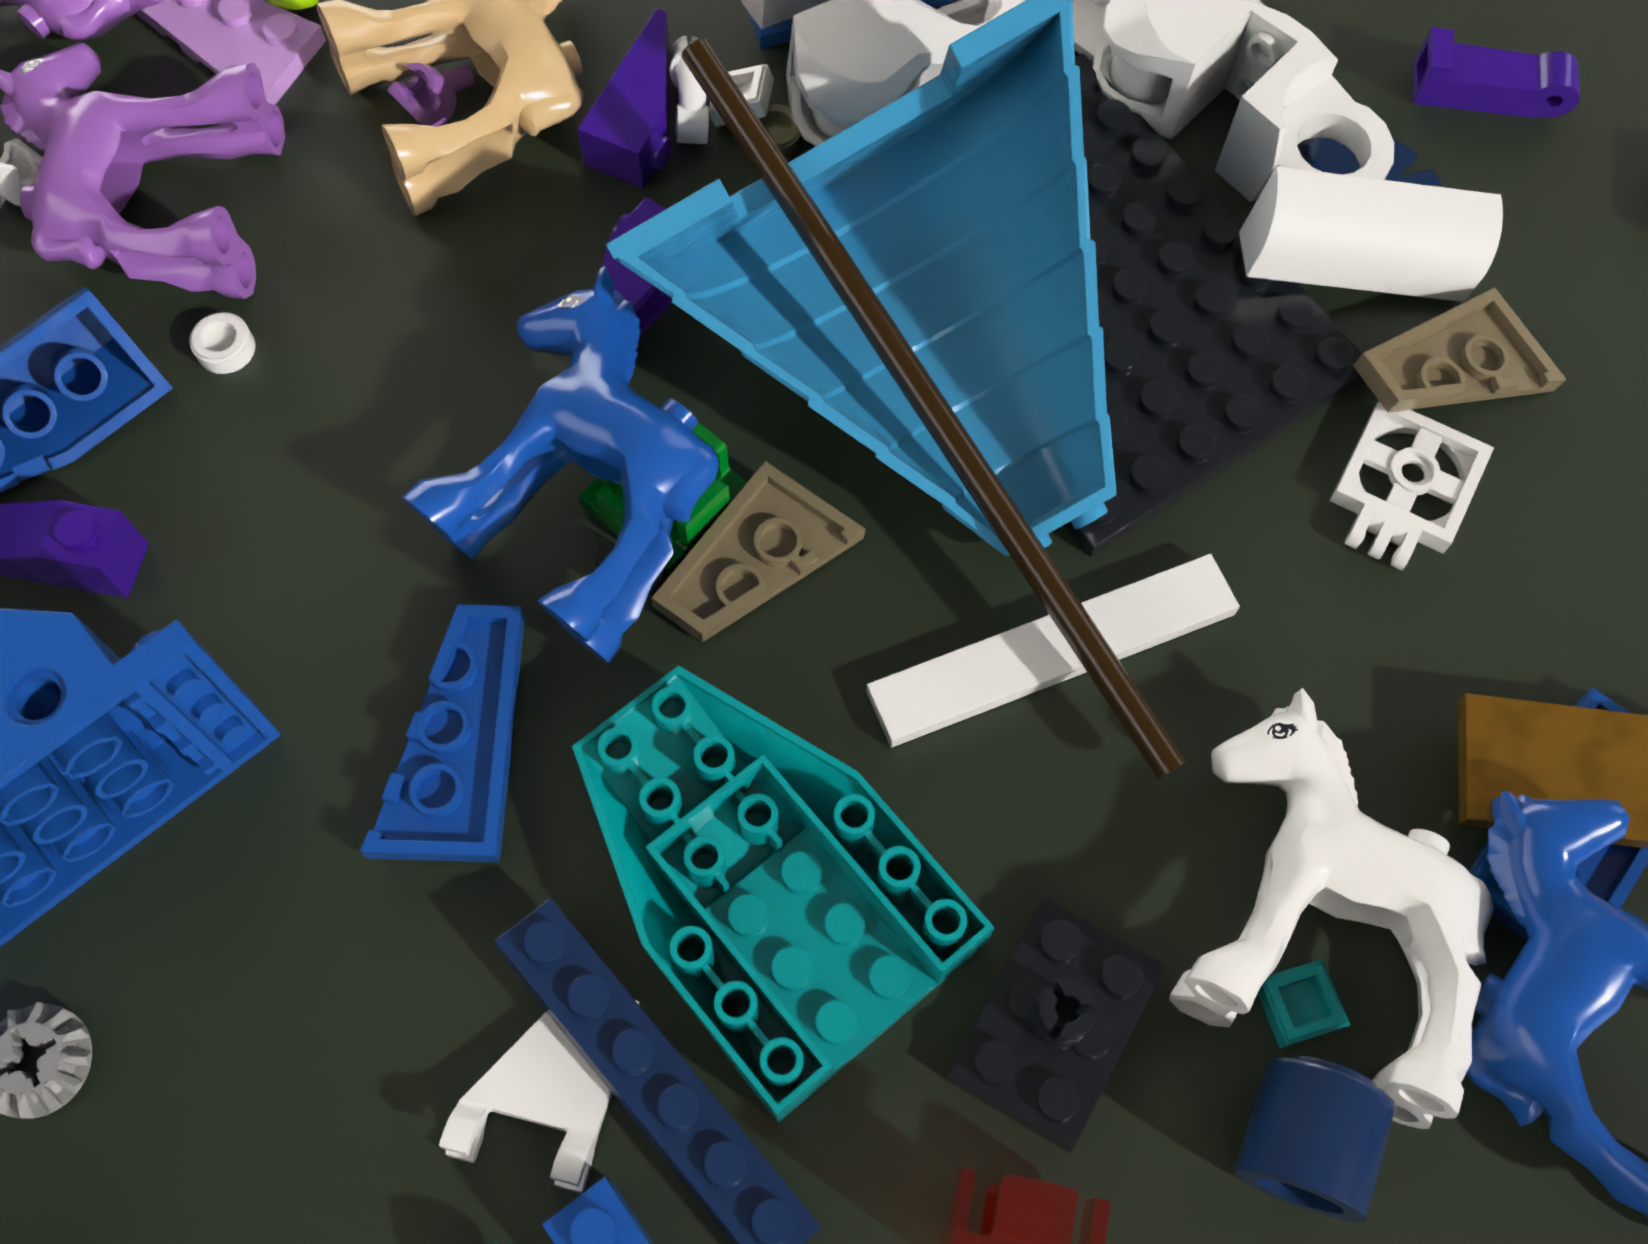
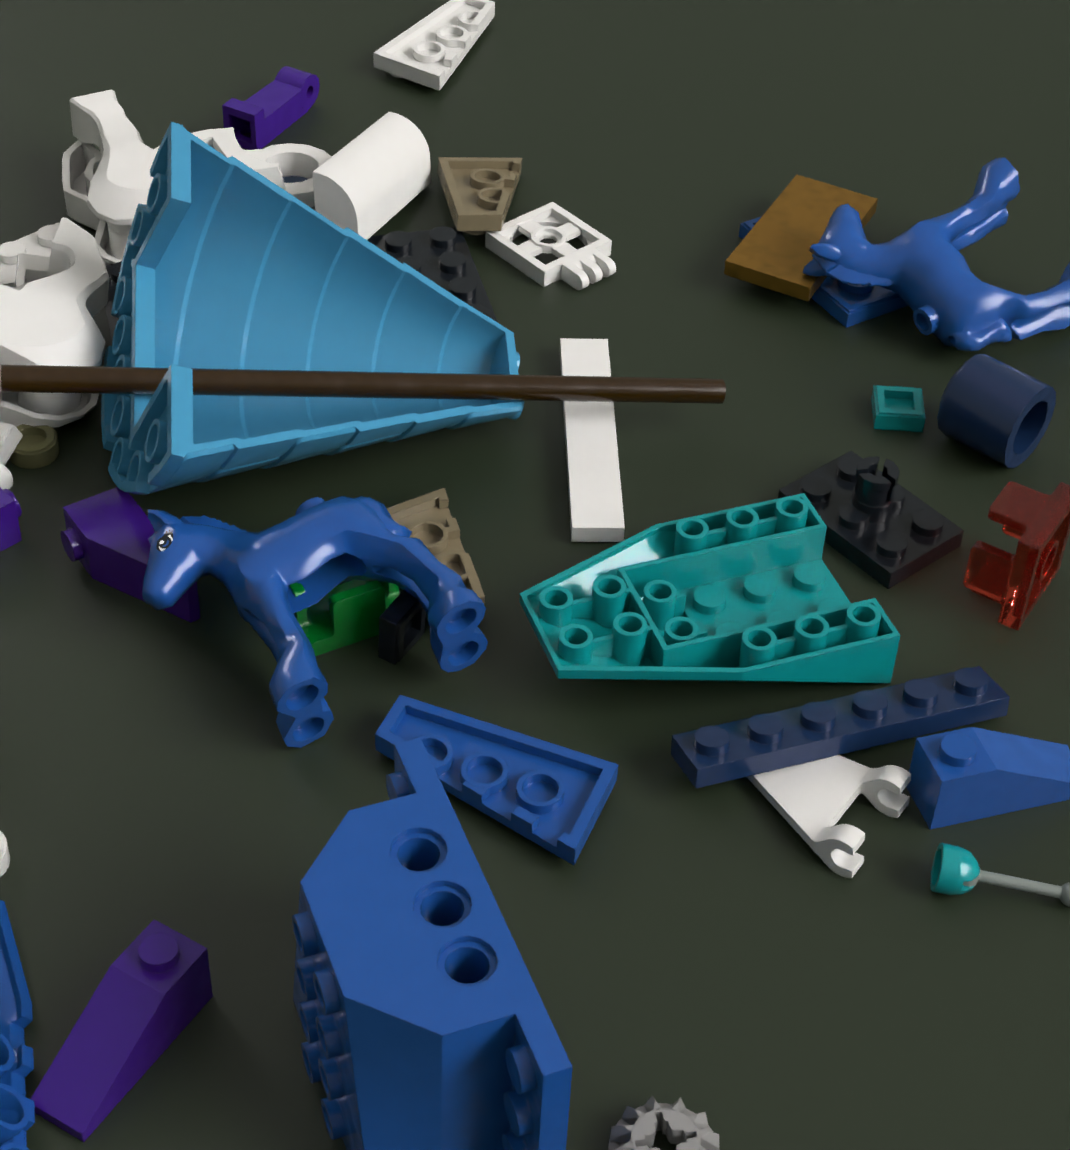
camera: 70 degrees left, 25 degrees down
(1357, 873) = (831, 343): white animal -> none

